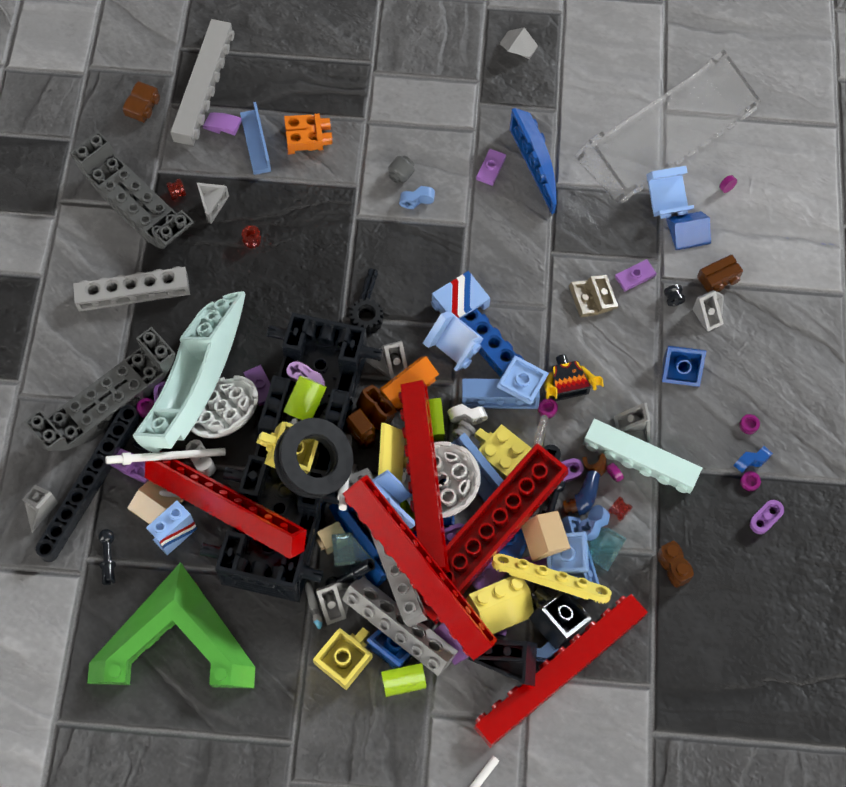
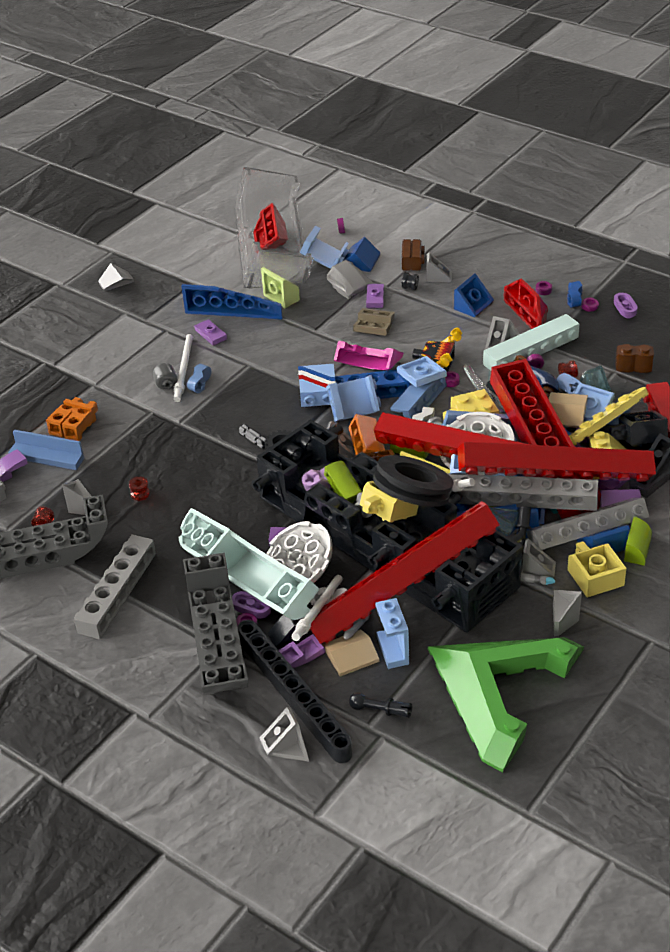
camera: 55 degrees left, 25 degrees down
(279, 652) = (565, 610): none -> light grey slope
(397, 189) = (179, 387): none -> white bar
(534, 320) = (367, 357): none -> dark pink windscreen
(584, 190) = (279, 289): none -> yellowish green slope
(643, 238) = (347, 279): none -> light grey slope
(671, 127) = (270, 229): none -> red wedge
(700, 426) = (526, 303): none -> red wedge

